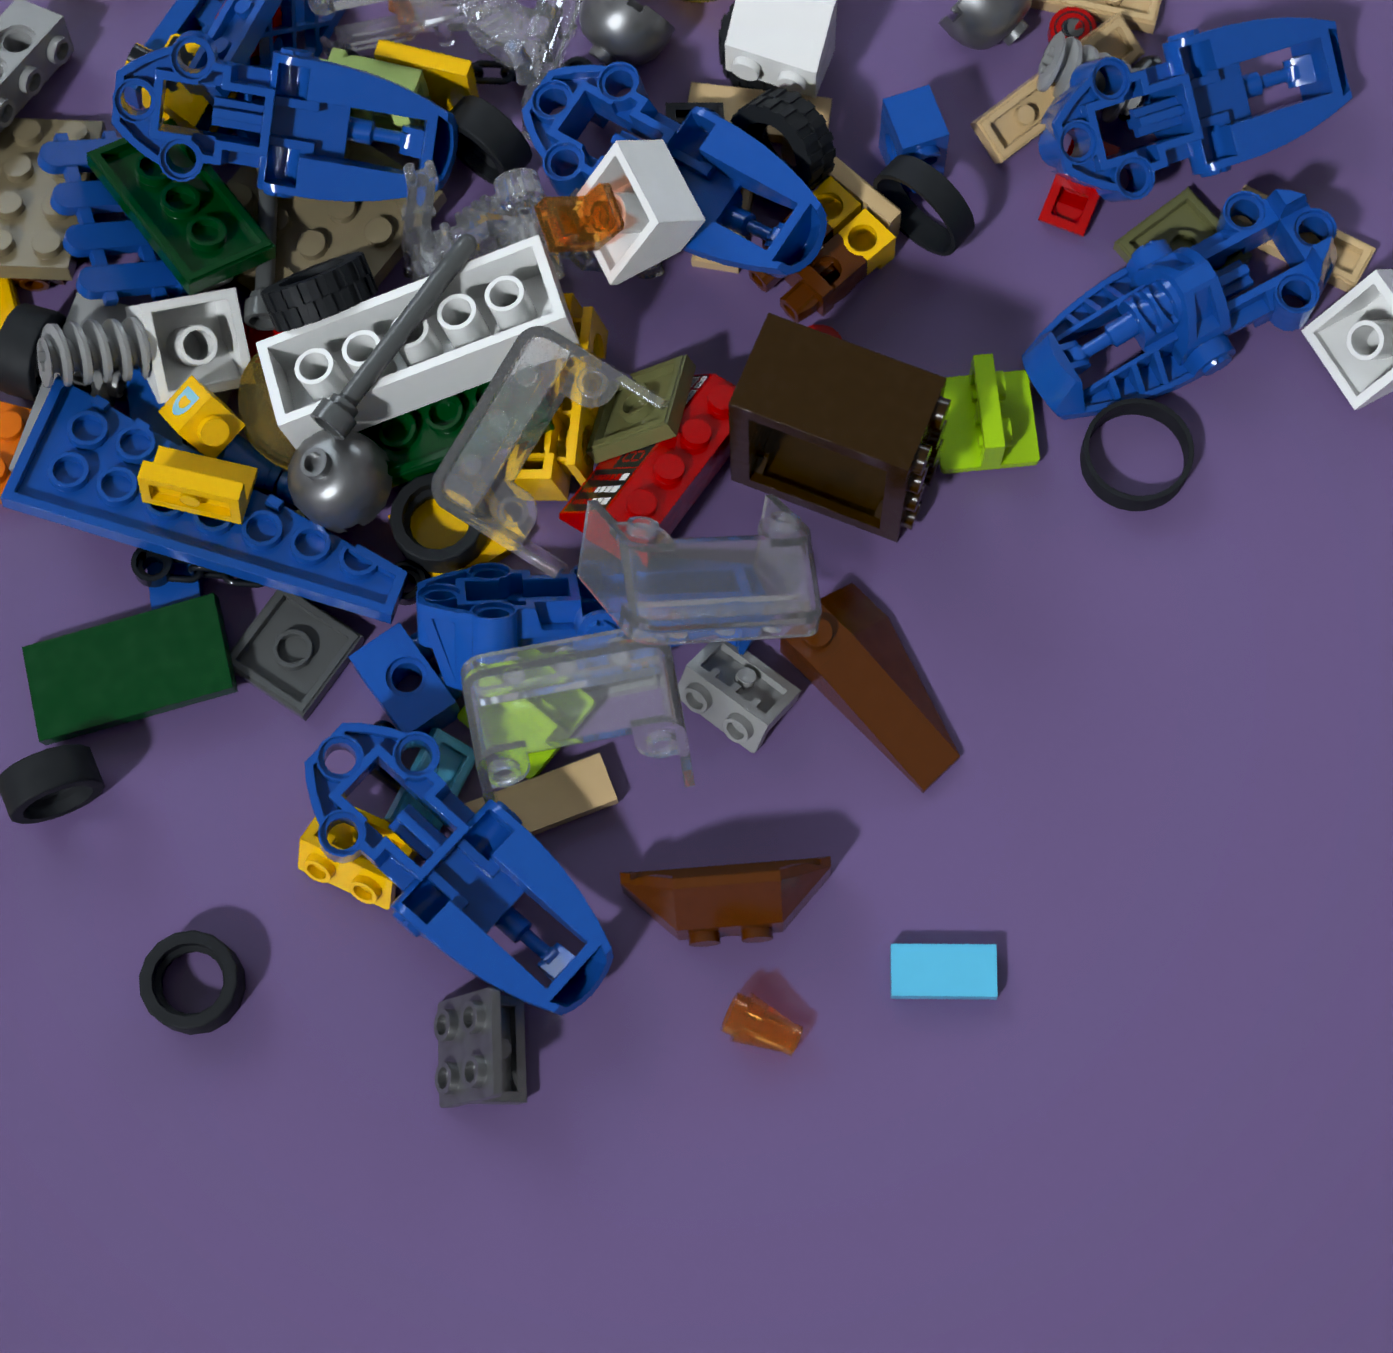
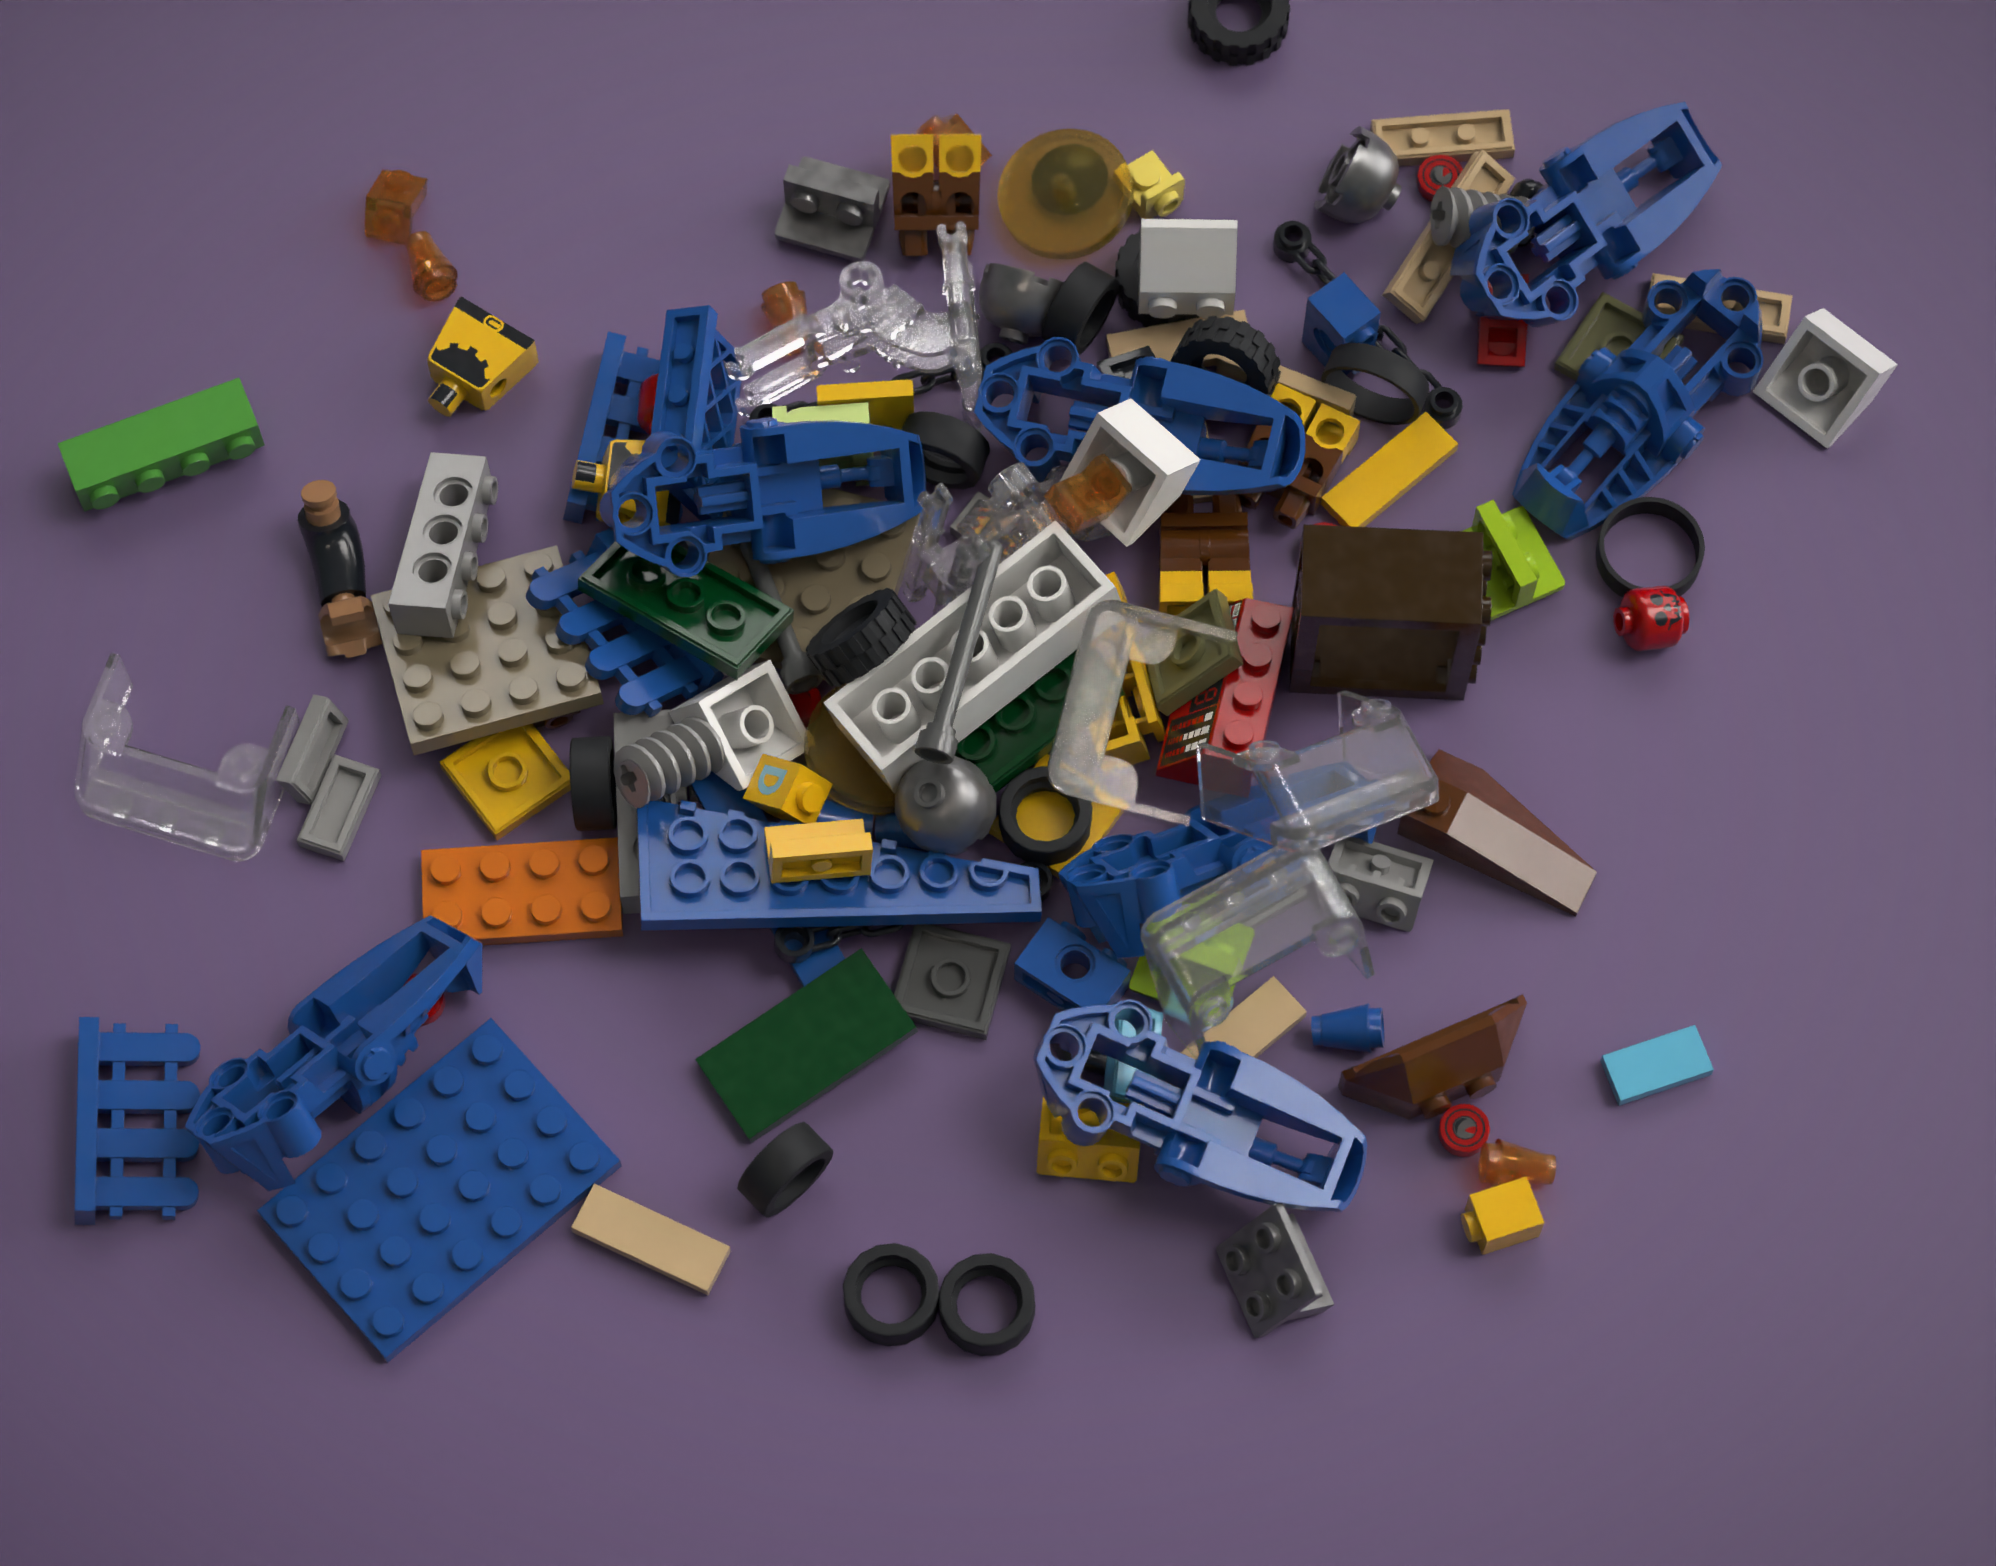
camera: 25 degrees left, 5 degrees down
(75, 917) = (885, 1256): none -> black tyre
(653, 831) = (1350, 1029): none -> blue cone
(671, 47) = (1081, 306): none -> black tyre
(697, 312) = (1199, 542): none -> reddish brown hips
(724, 1072) = (1502, 1216): none -> yellow brick
(725, 970) = (1463, 1130): none -> red tile
(906, 60) = (1296, 253): none -> black piece
(910, 298) = (1389, 473): none -> yellow tile
(1110, 521) = (1651, 618): none -> red head

